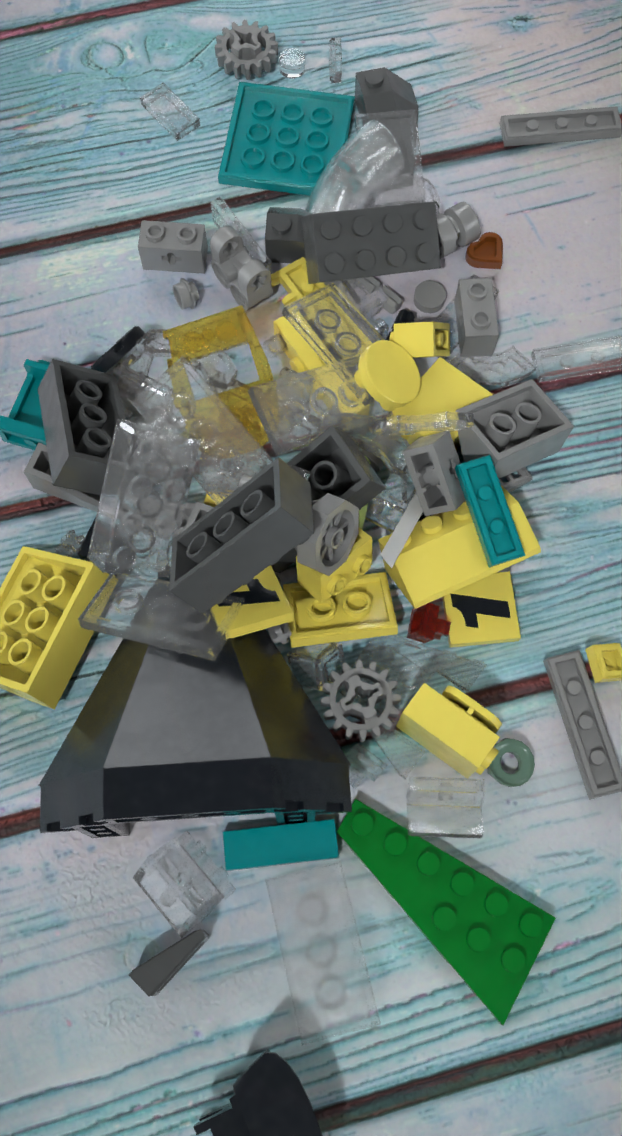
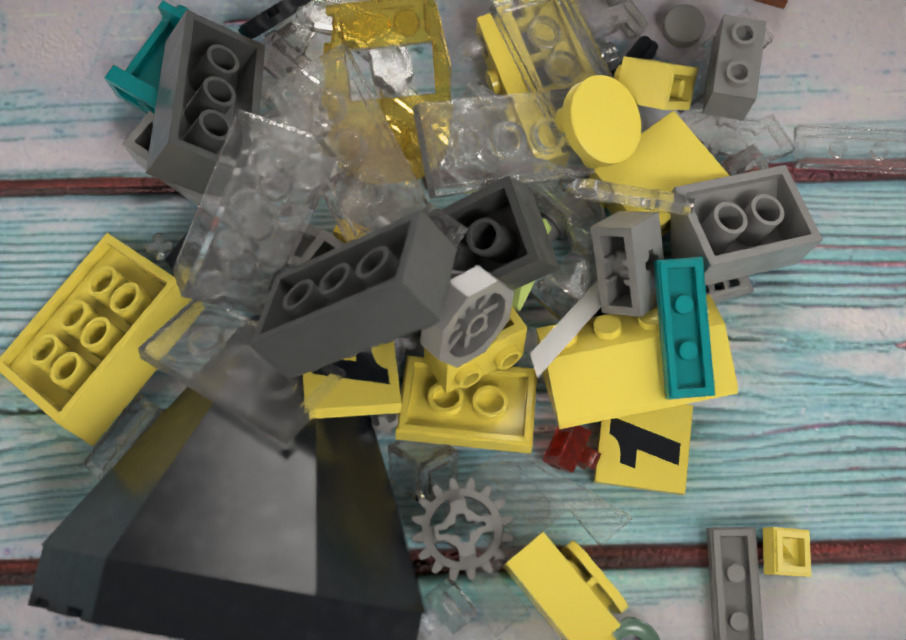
camera: 15 degrees right, 5 degrees up
(75, 696) = (122, 435): none -> clear tile
(502, 382) = (745, 161): none -> clear tile

